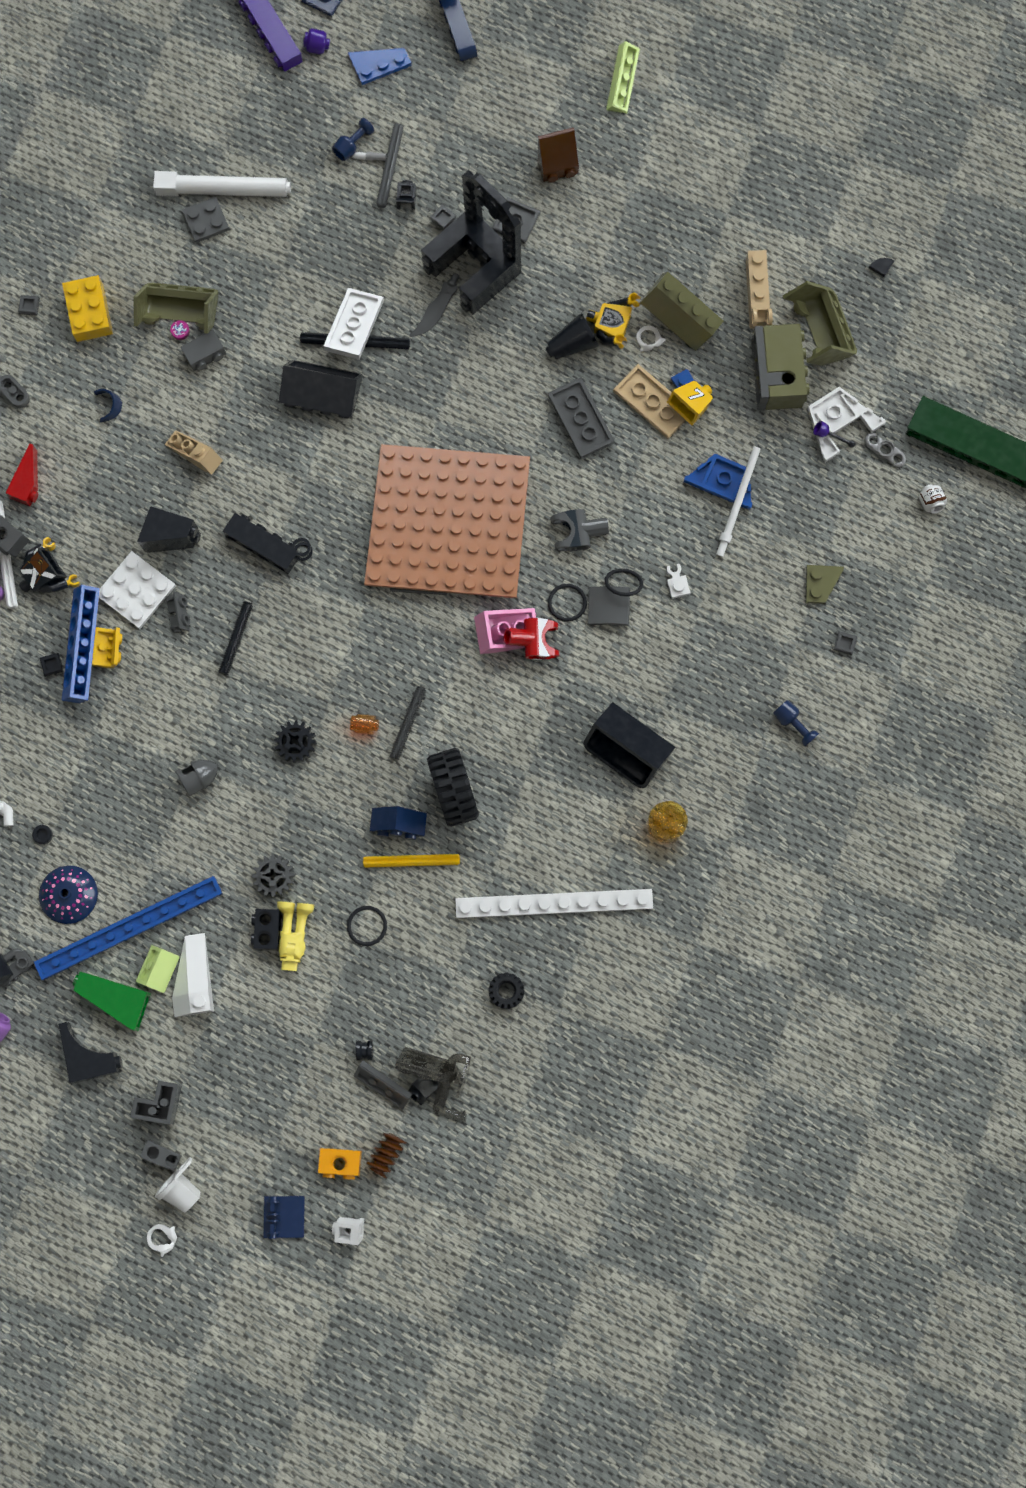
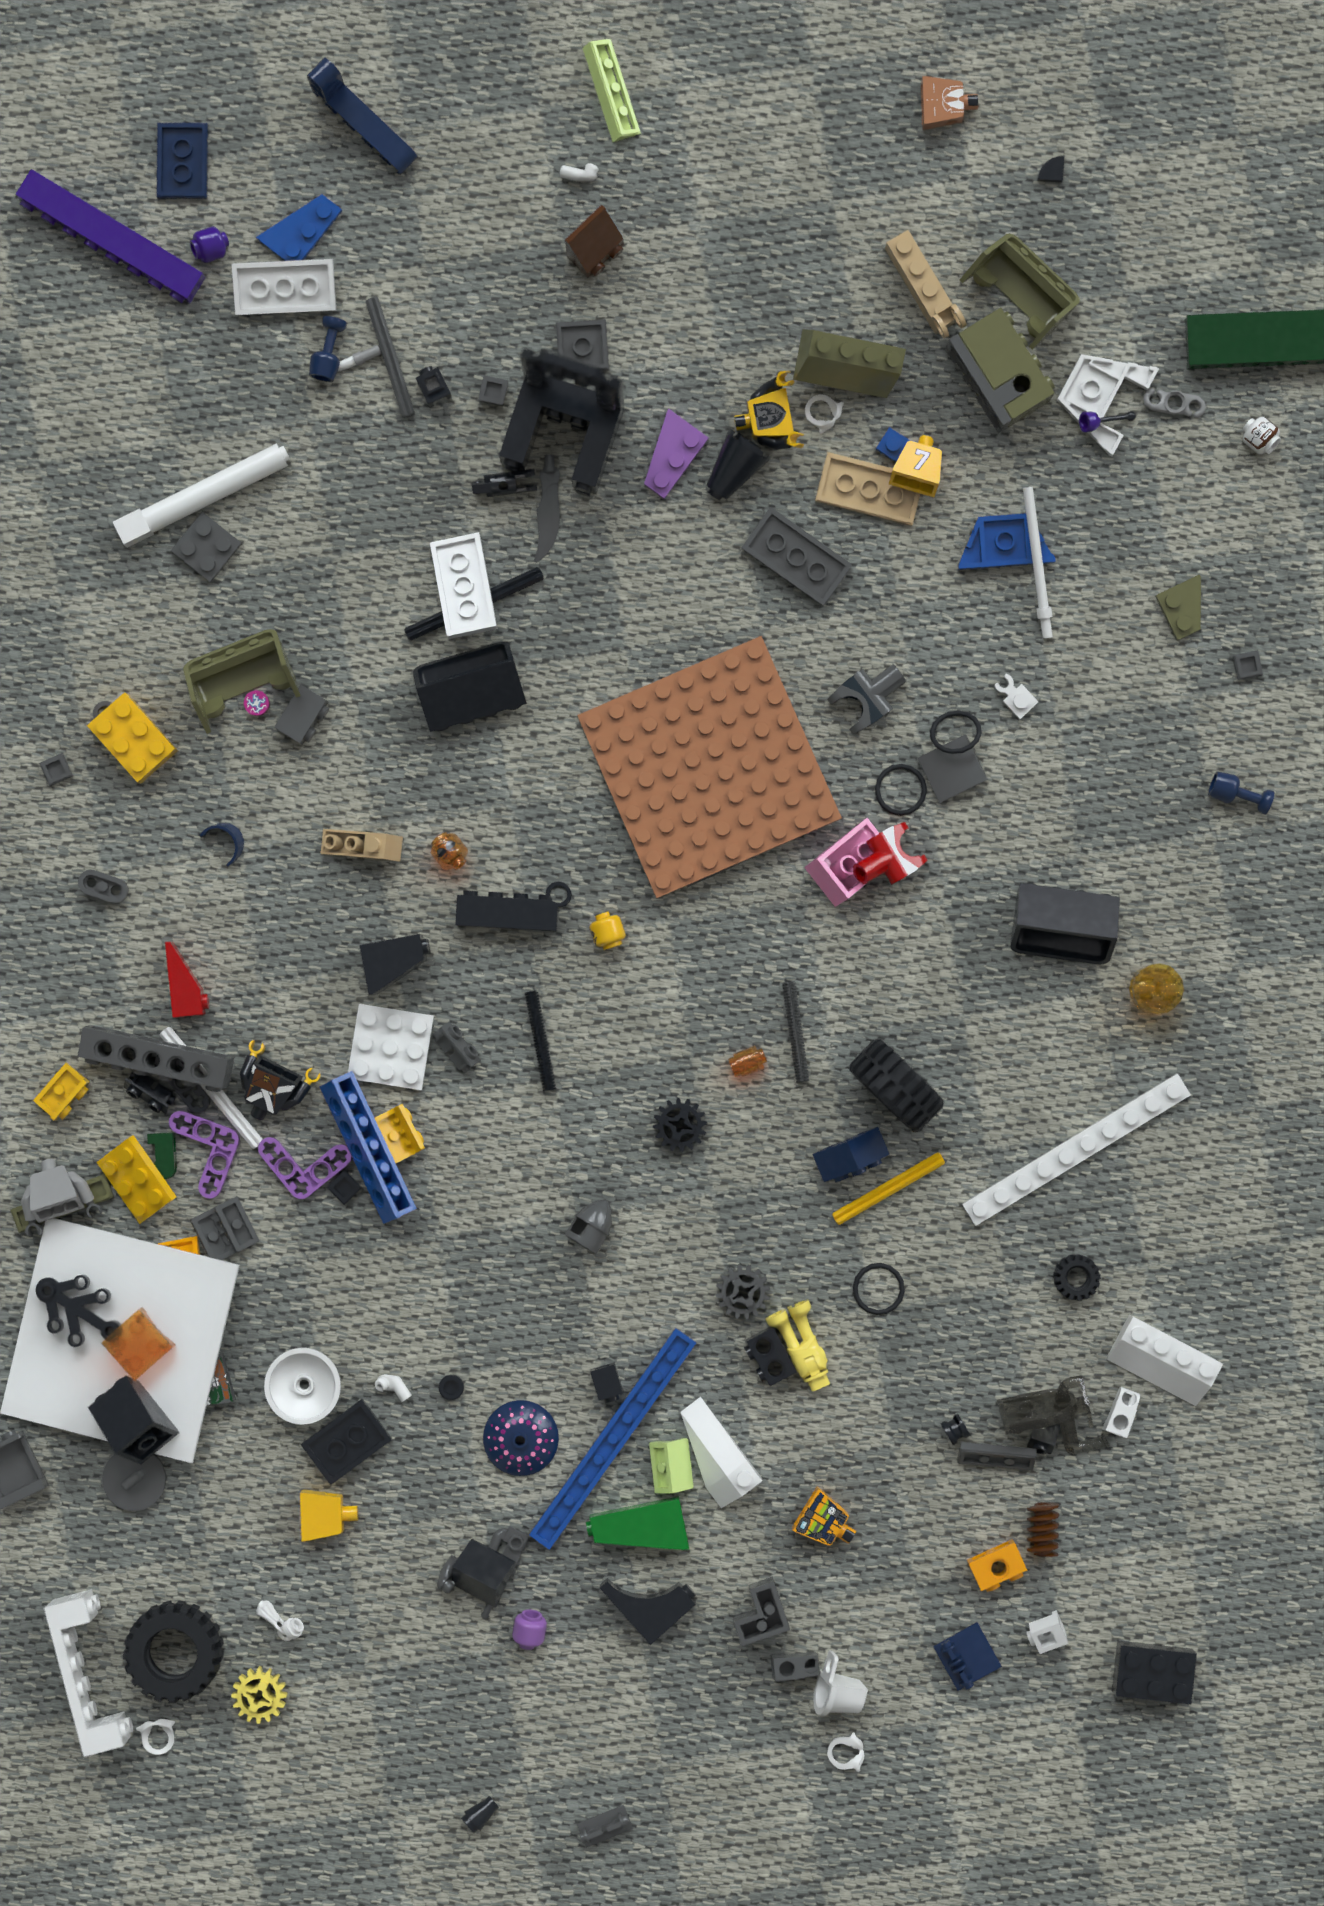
camera: 30 degrees left, 10 degrees up
(32, 643) = (307, 1175): none -> medium lavender beam
(146, 887) = (607, 1382): none -> black brick
(238, 1063) = (823, 1520): none -> torso
(247, 484) = (449, 851): none -> clear orange head
(320, 590) = (607, 931): none -> yellow head
(347, 88) = (284, 286): none -> white plate
(407, 1301) = (1154, 1672): none -> black brick
(409, 272) = (492, 488): none -> black hinge
(486, 1102) = (1122, 1412): none -> white leg
(535, 1082) = (1164, 1360): none -> white slope
(536, 314) = (673, 454): none -> medium lavender wing
(574, 117) = (579, 175): none -> white arm
(833, 188) = (944, 102): none -> nougat torso

